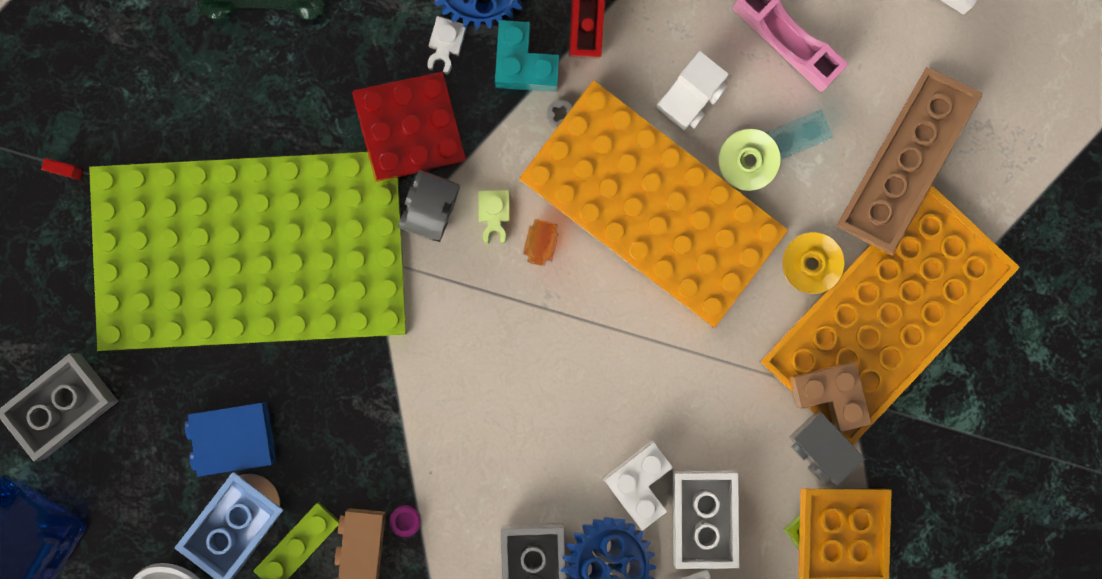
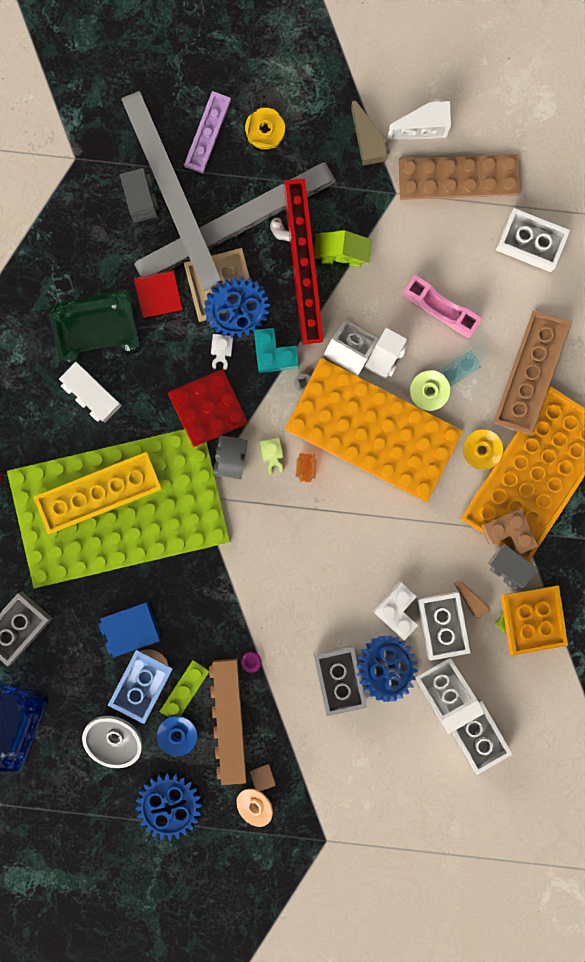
camera: 10 degrees left, 0 degrees up
(218, 224) = (97, 493): none -> yellow plate
(234, 71) = (89, 393): none -> white brick
(641, 73) = (351, 347): none -> white slope
(759, 494) = (473, 602): none -> medium nougat slope

